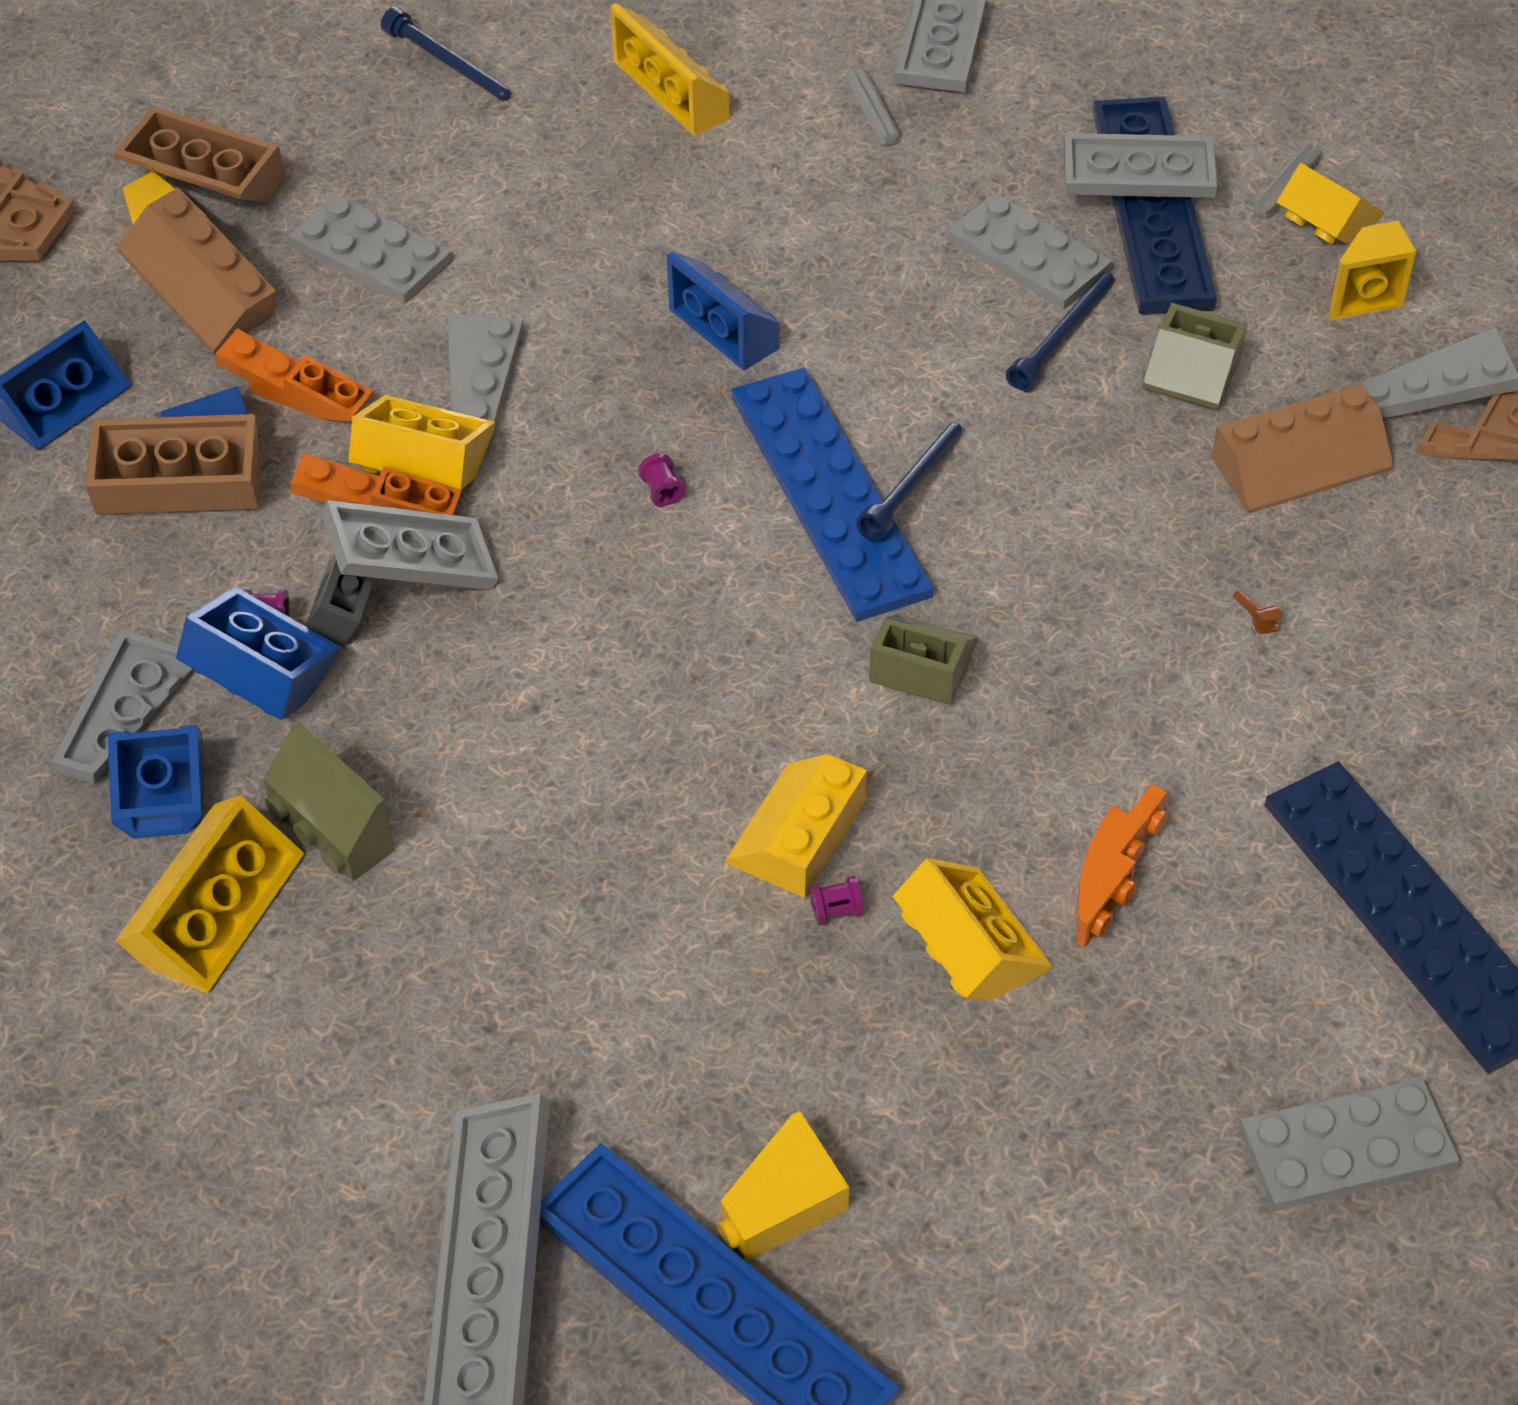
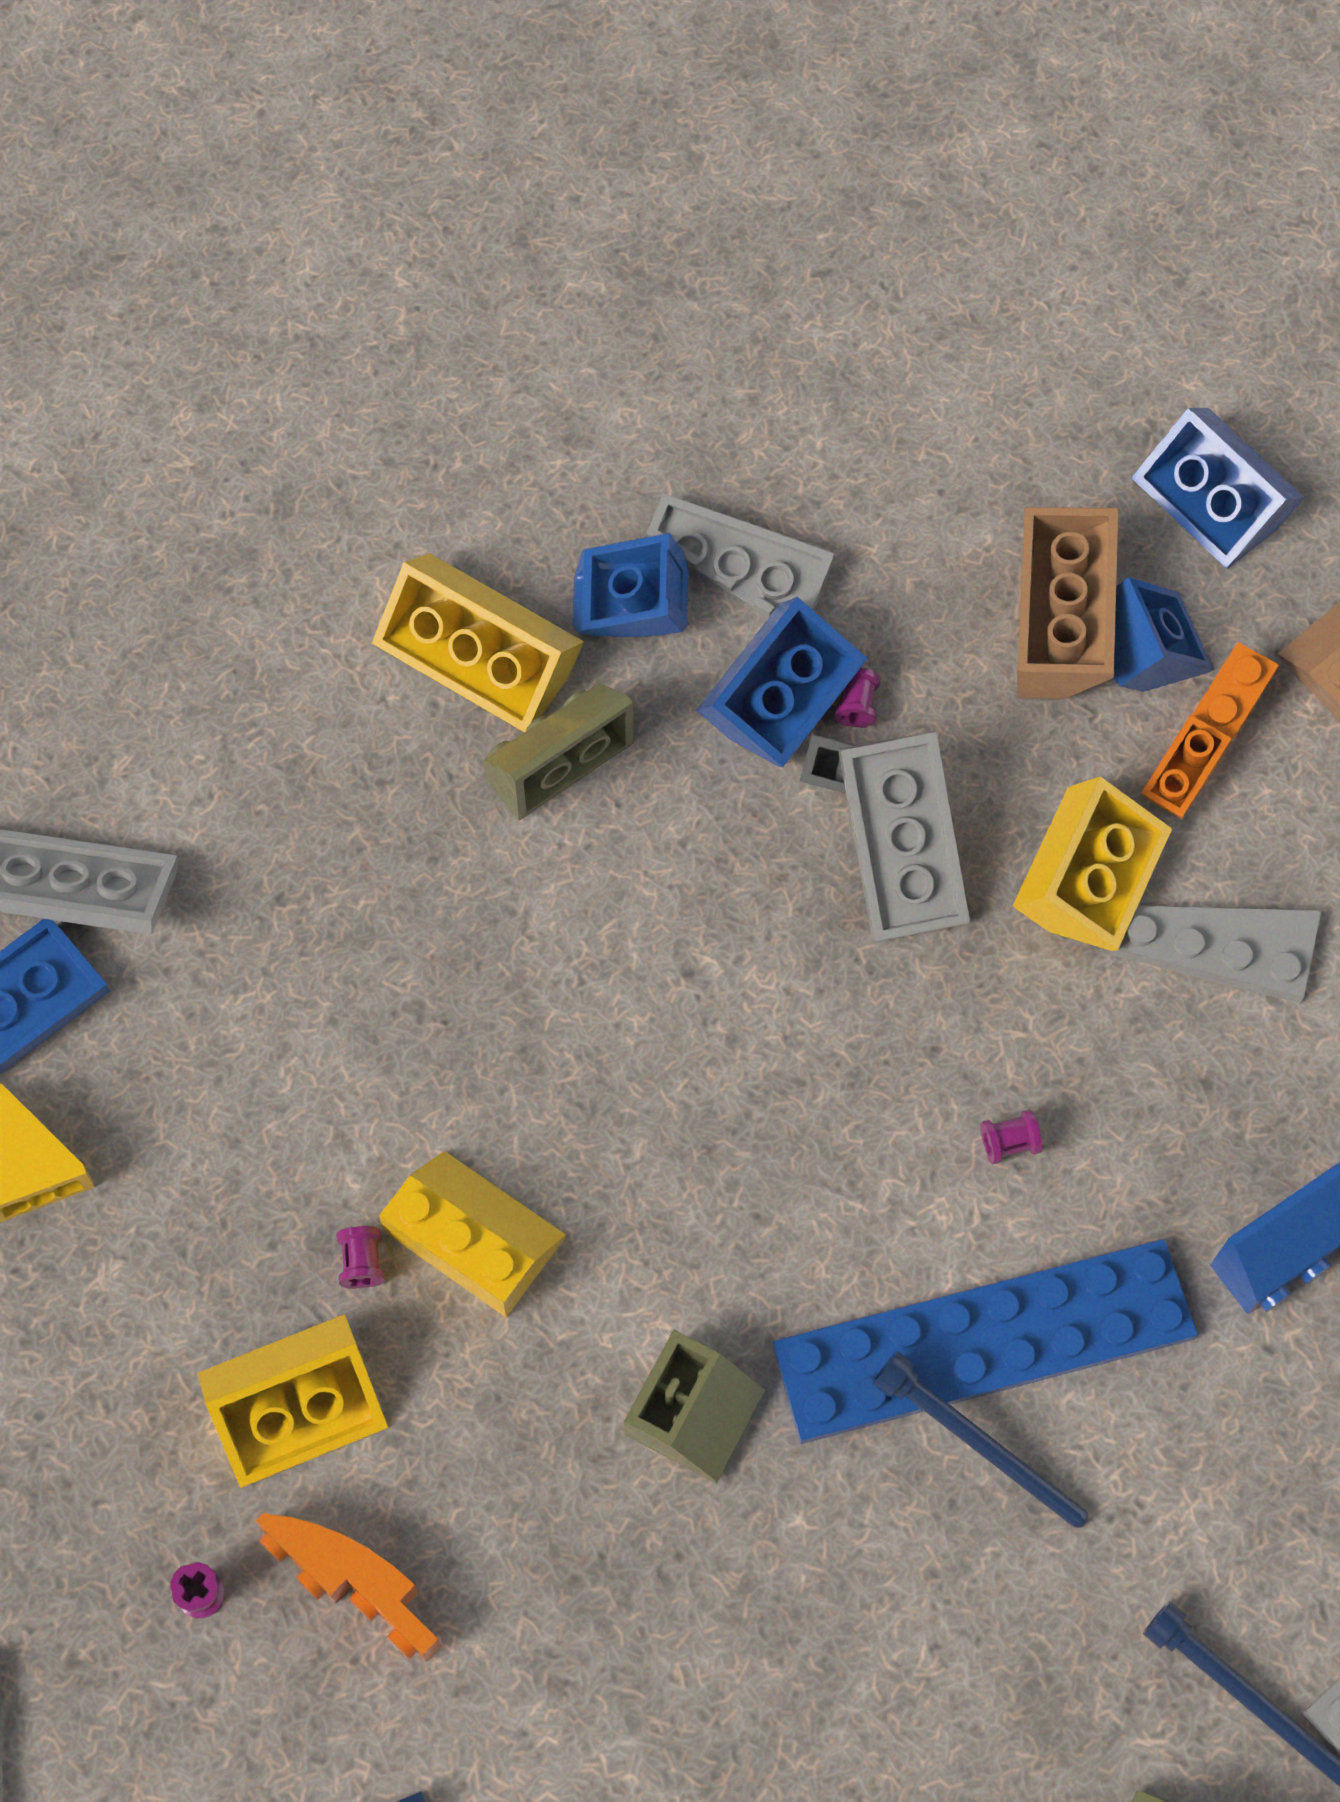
camera: 95 degrees right, 15 degrees up
(332, 481) = (1014, 812): orange slope -> none
(1151, 971) = (197, 1573): none -> magenta bush

